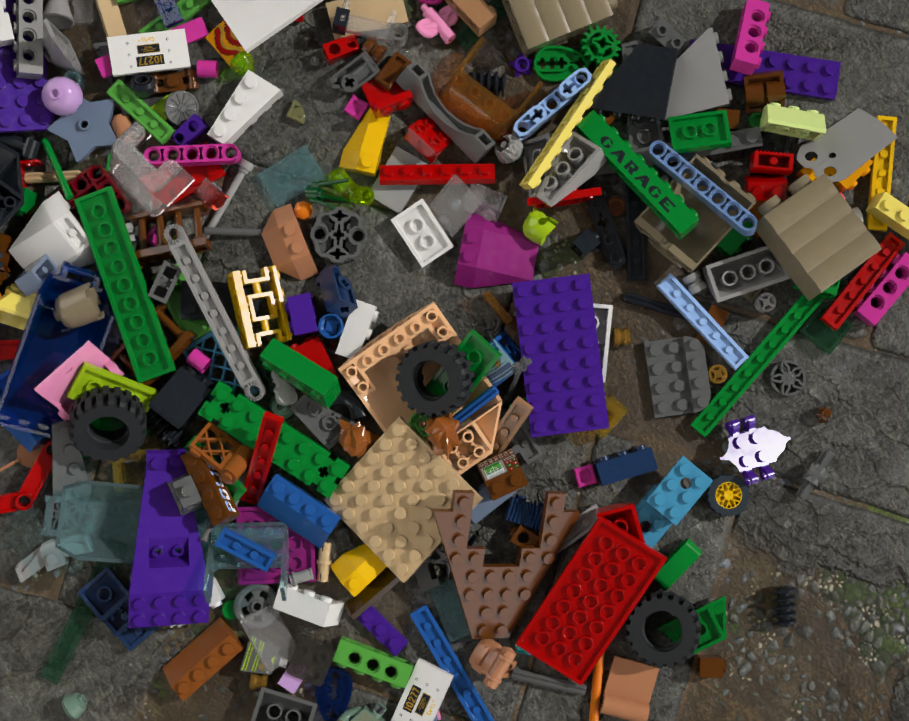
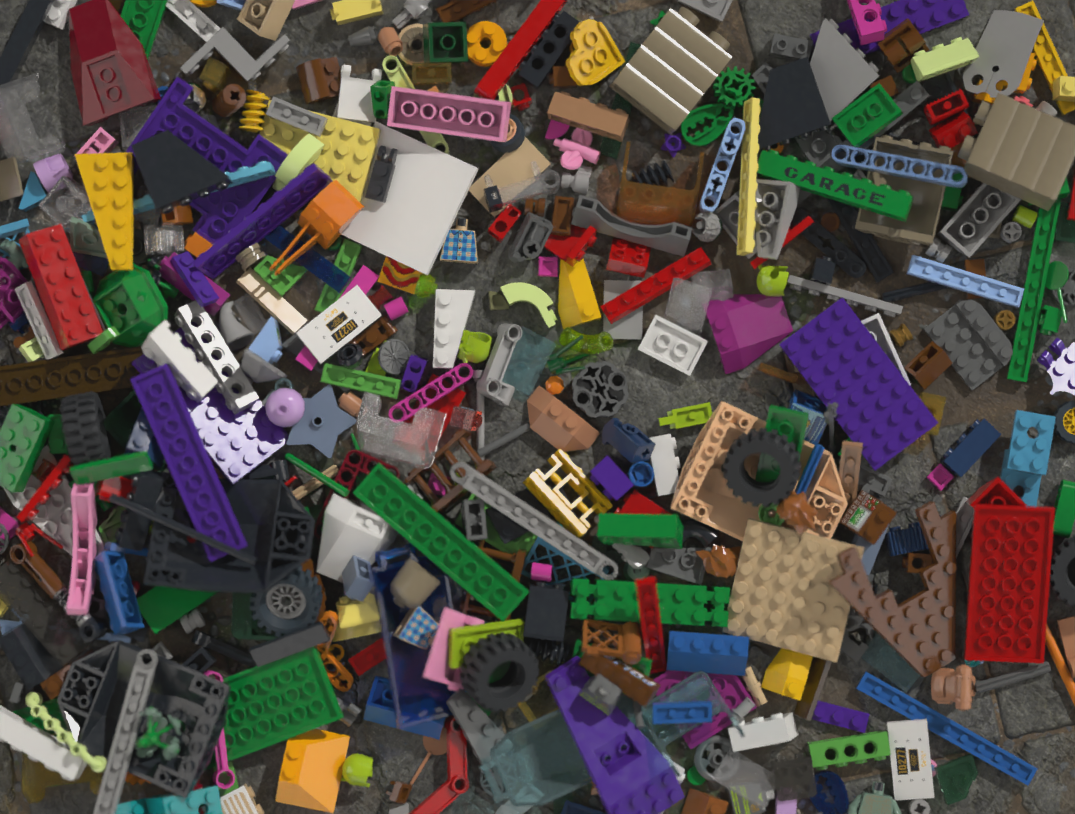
camera: 25 degrees left, 0 degrees up
(60, 345) = (417, 628): none -> torso
(81, 33) = (268, 342): none -> light blue slope
(199, 51) = (380, 297): none -> clear red bush
(253, 138) = (474, 347): none -> lime helmet
(263, 164) = (497, 365): none -> light grey piece
(292, 46) = (460, 244): none -> torso
(323, 117) = (529, 293): none -> yellowish green arch
(399, 300) = (687, 416): none -> lime hinge
(423, 51) = (579, 181): none -> light grey piece
(597, 280) = (851, 298): none -> light grey plate
(629, 374) = (928, 365): none -> reddish brown brick
(755, 396) = (1049, 320): none -> green brick
(781, 364) = (1056, 279): none -> green piece
(784, 296) = (1024, 216): none -> lime beam

